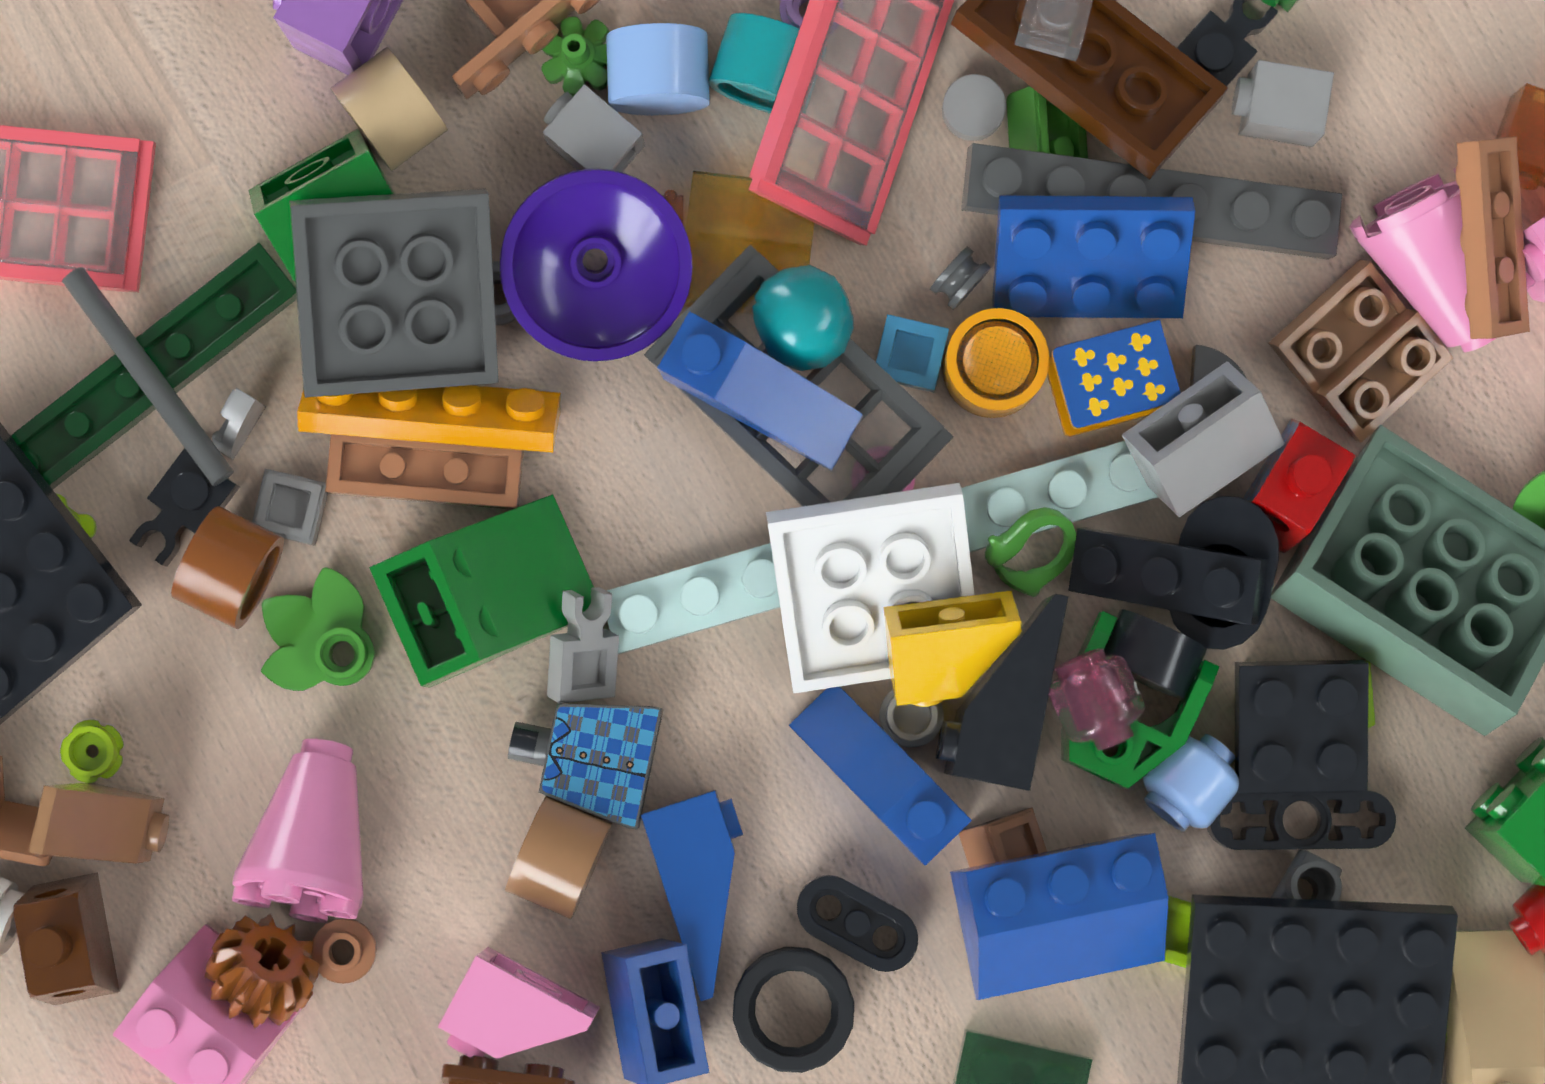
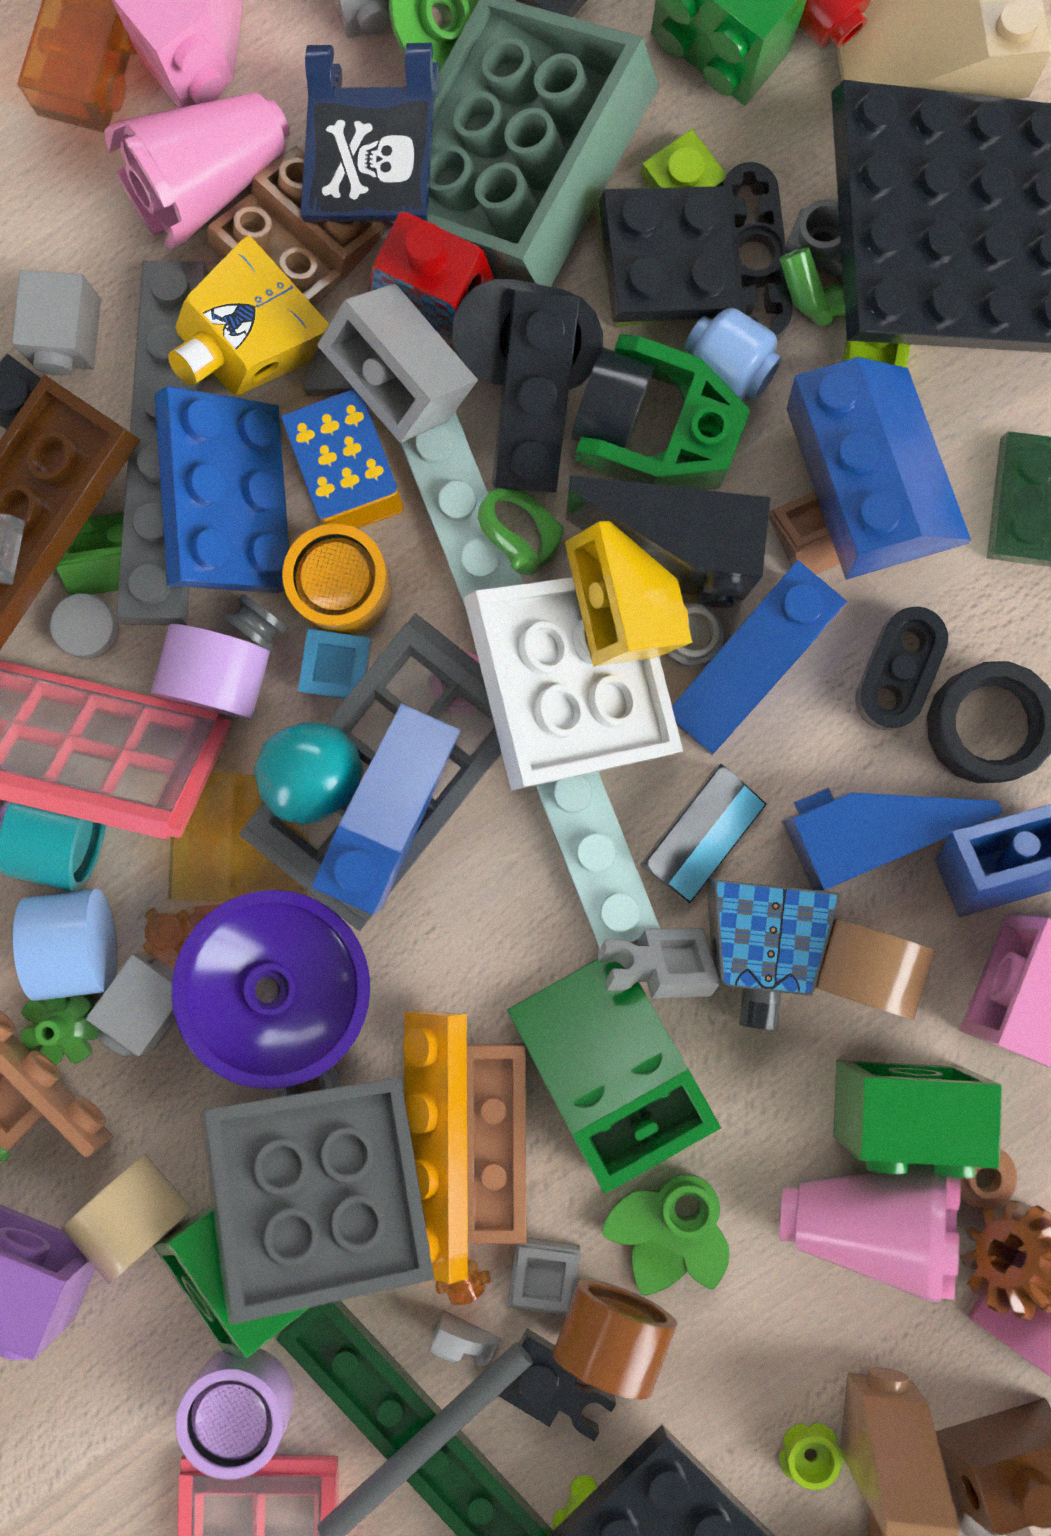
camera: 90 degrees left, 0 degrees up
(194, 198) = (235, 1414): none -> lavender piece
(286, 428) = (467, 1290): none -> clear orange piece
(411, 881) = (917, 1117): none -> green brick
(662, 165) = (165, 930): none -> clear orange piece
(708, 707) = (703, 833): none -> slope
(912, 229) = (210, 671): none -> lavender piece
(1096, 698) = (669, 440): clear pink head -> none
(1254, 864) = (807, 291): none -> bright green arm
(1260, 292) = (245, 323): none -> yellow torso
(1396, 755) = (683, 164): none -> lime plate
(1438, 430) = (368, 144): none -> flag
(1492, 238) = (170, 91): nougat plate -> none

